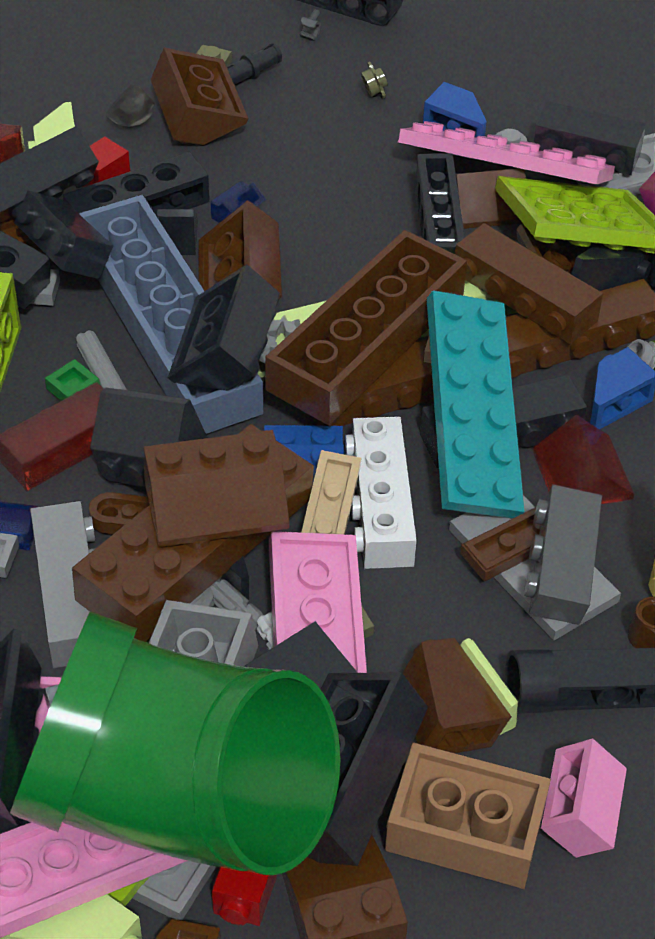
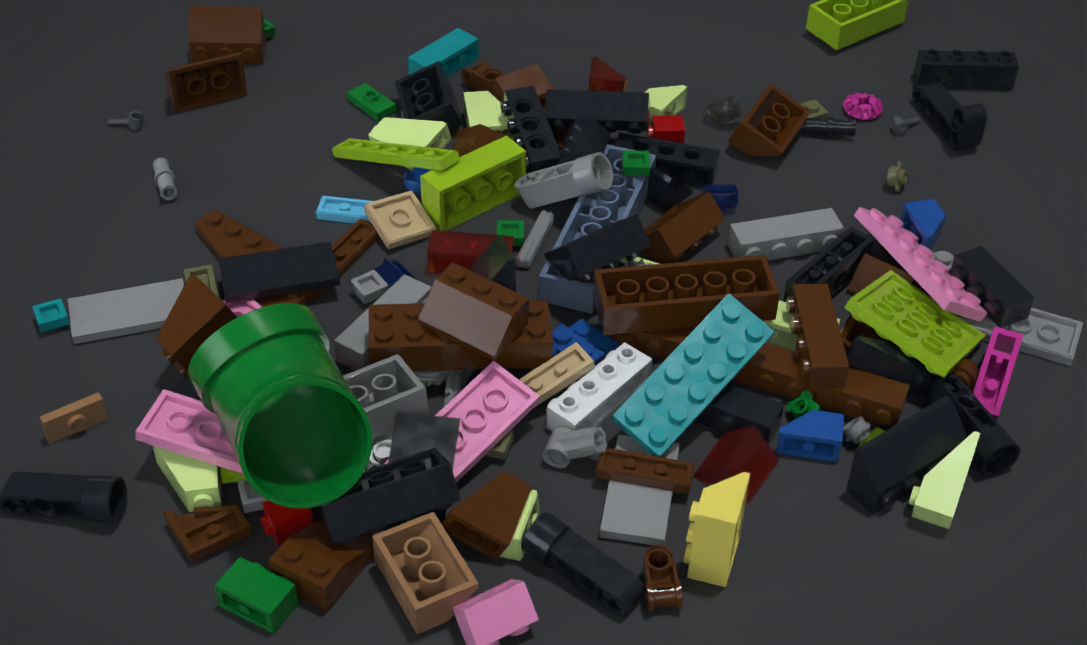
camera: 45 degrees right, 5 degrees down
(84, 284) = (566, 180): none -> light grey beam
(143, 214) = (635, 163): none -> green plate
(263, 26) = (862, 106): none -> dark pink gear
(350, 206) = (785, 234): none -> light grey brick
(422, 570) = (569, 444): none -> light grey piece
(564, 554) = (645, 489): dark grey brick -> none
(586, 363) = (804, 400): none -> green plate

